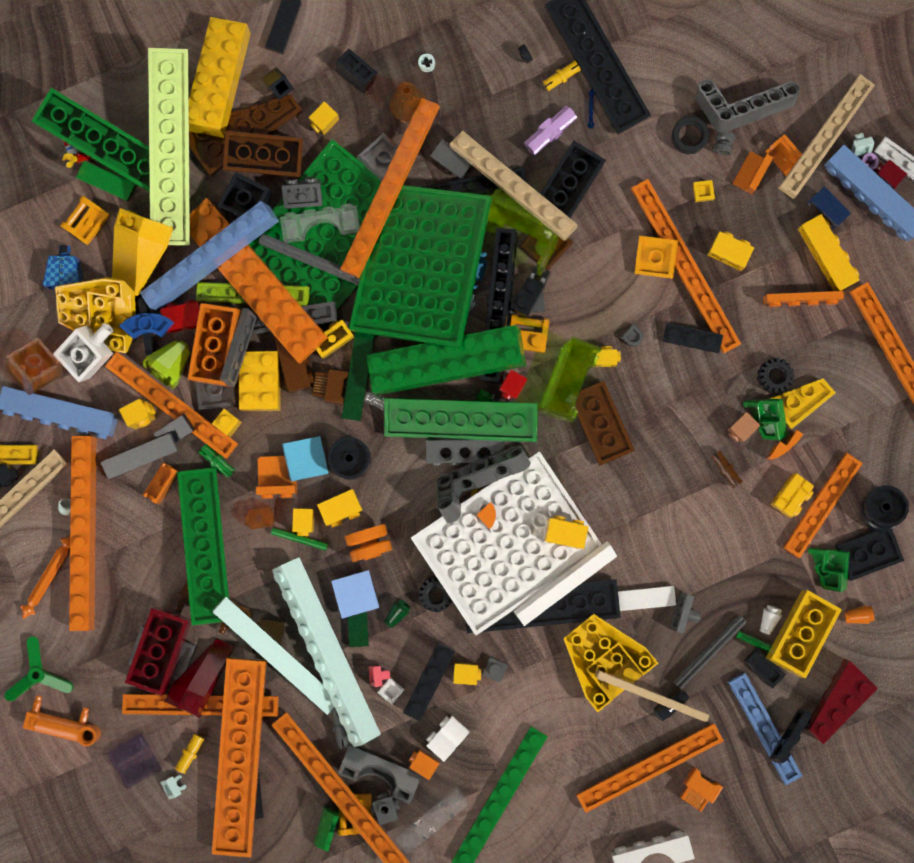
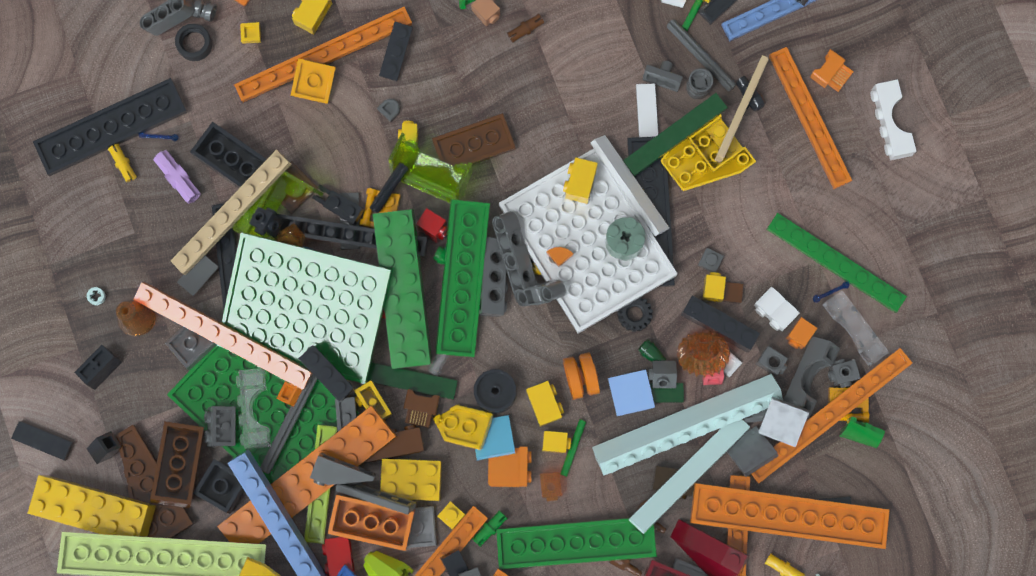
camera: 85 degrees left, 5 degrees down
(260, 305) = (335, 471): none -> dark grey slope
(302, 717) = (752, 452): none -> flat silver tile
(314, 430) = (464, 426): none -> yellow tile
(323, 118) = (144, 402): yellow brick -> none
(331, 748) = (783, 421): none -> tile
(336, 256) = (289, 394): none -> orange tile
(355, 291) = (326, 373): none -> black brick
(375, 625) = (663, 374): none -> dark grey brick
(390, 664) = (702, 359): none -> clear orange gear
(398, 728) = (763, 361): none -> dark grey brick
(461, 778) = (816, 298): none -> clear blue hinge
(463, 693) = (733, 292): none -> reddish brown tile
(492, 246) = (291, 235): none -> clear orange brick
(503, 220) = (266, 222): none -> black brick
(517, 585) = (620, 248): none -> sand green brick
(525, 54) = (96, 197): black tile -> none
(549, 340) = (389, 187): none -> black axle
(621, 628) = (675, 134): none -> dark green tile
(677, 651) = (699, 83): none -> dark grey wheel

